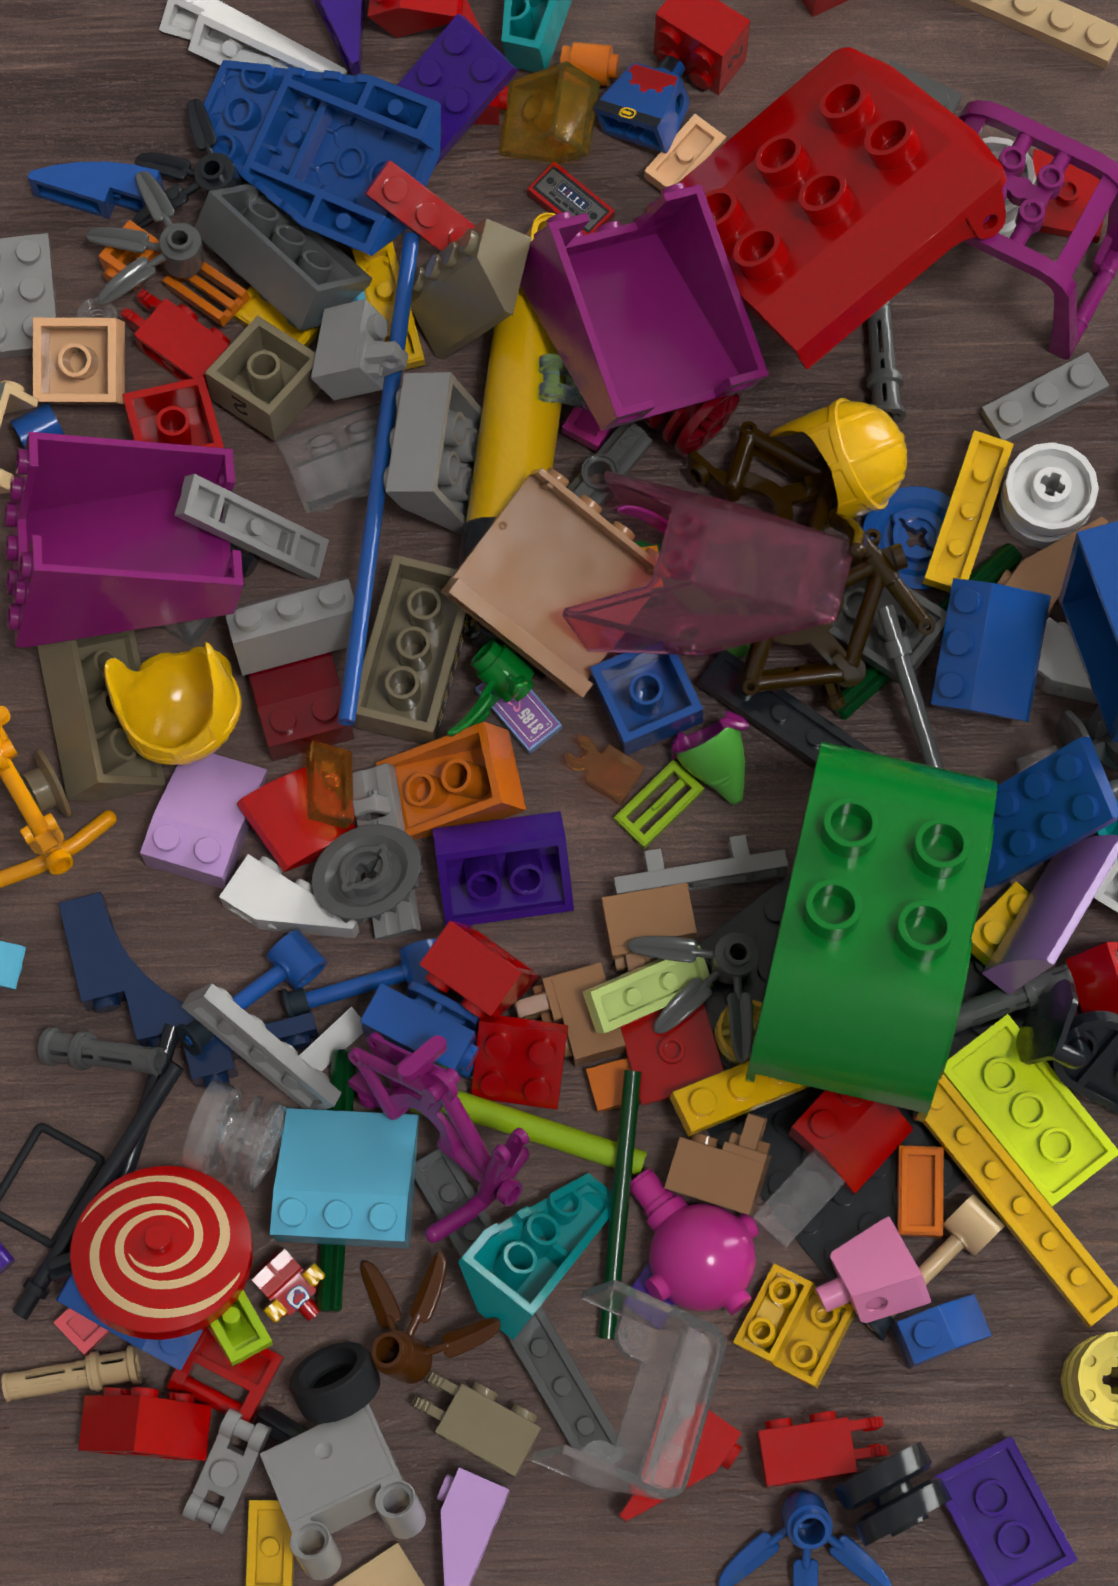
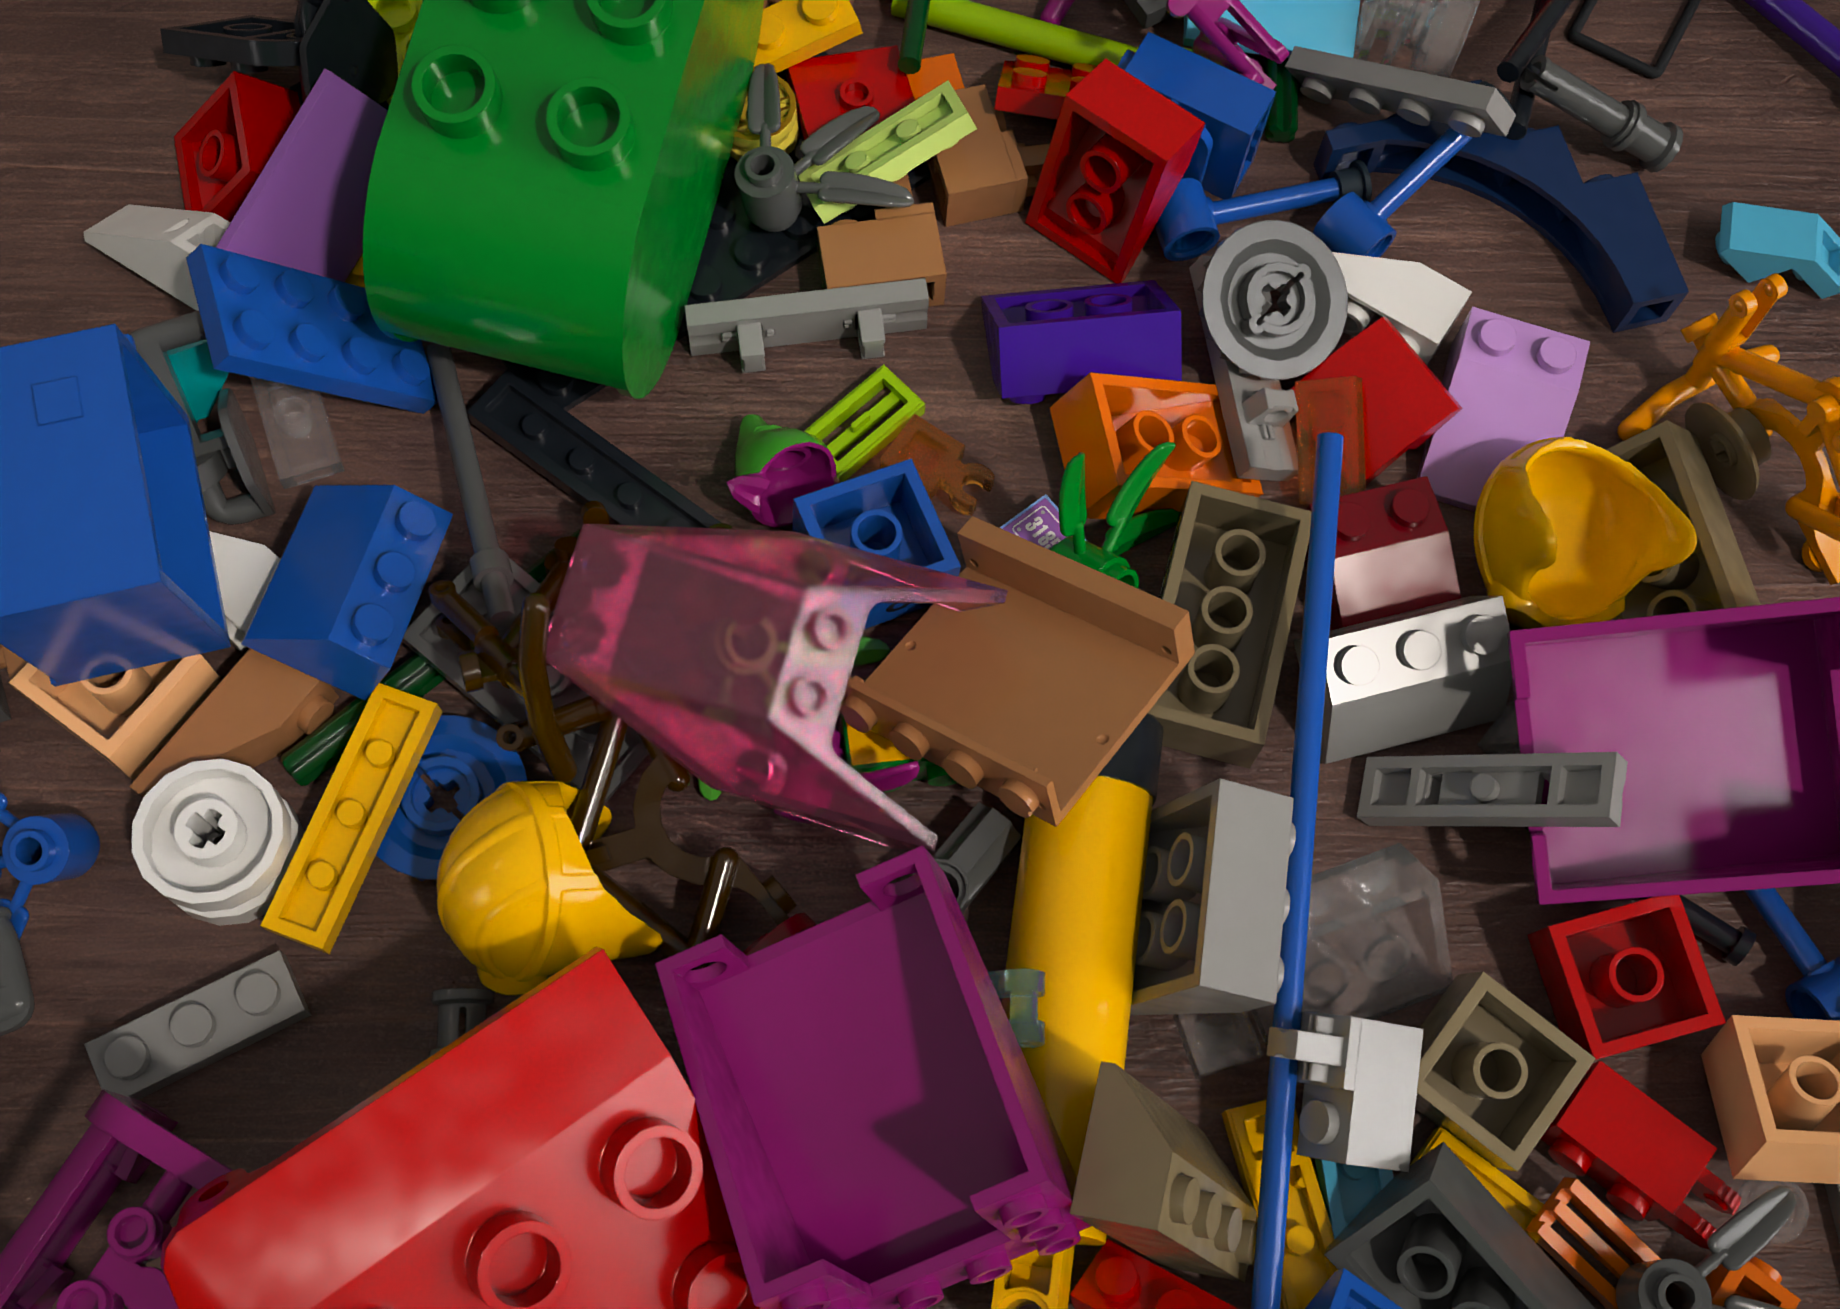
camera: 175 degrees right, 5 degrees down
(337, 1036) = (1303, 140): white sticker -> none

